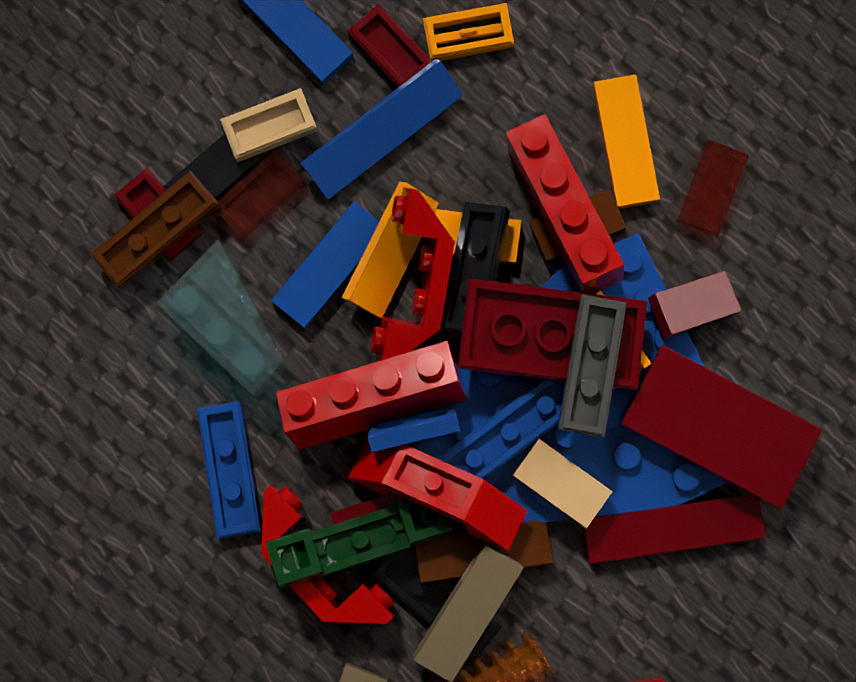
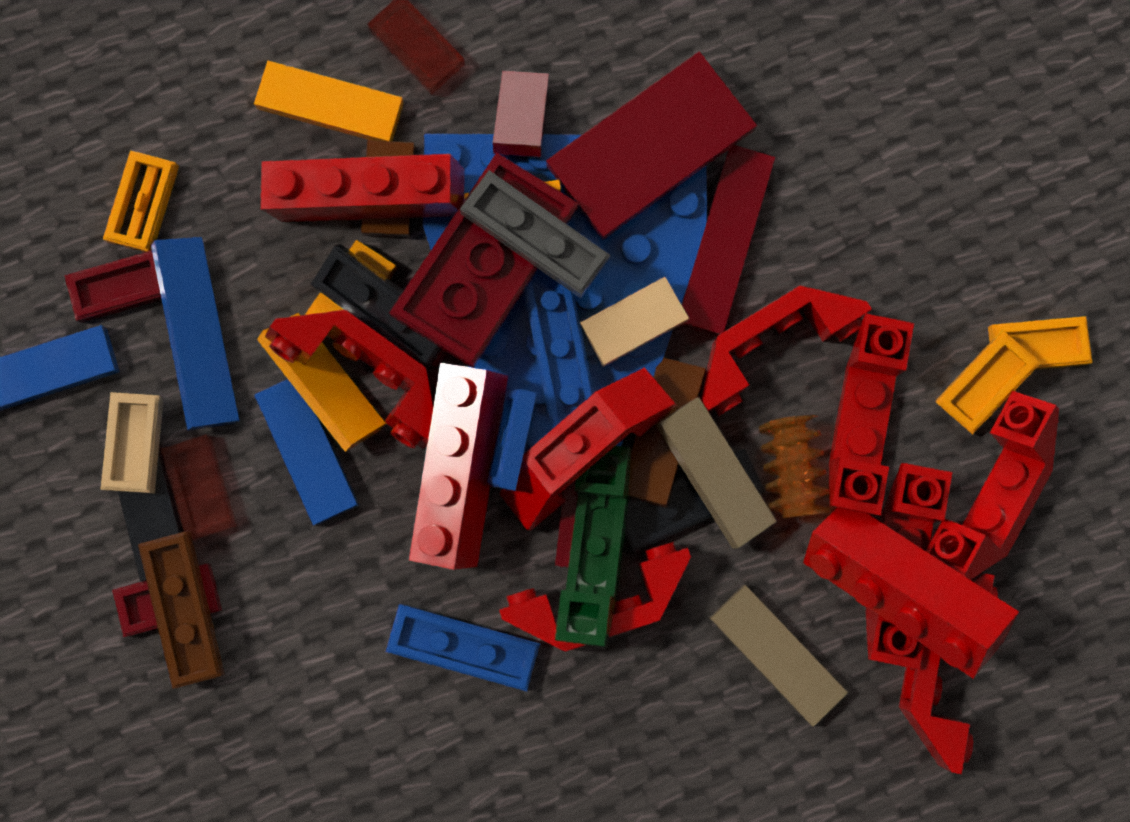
camera: 75 degrees left, 0 degrees up
(225, 321) = (307, 581): clear light blue wedge -> none
(650, 645) = (826, 311): none -> red slope

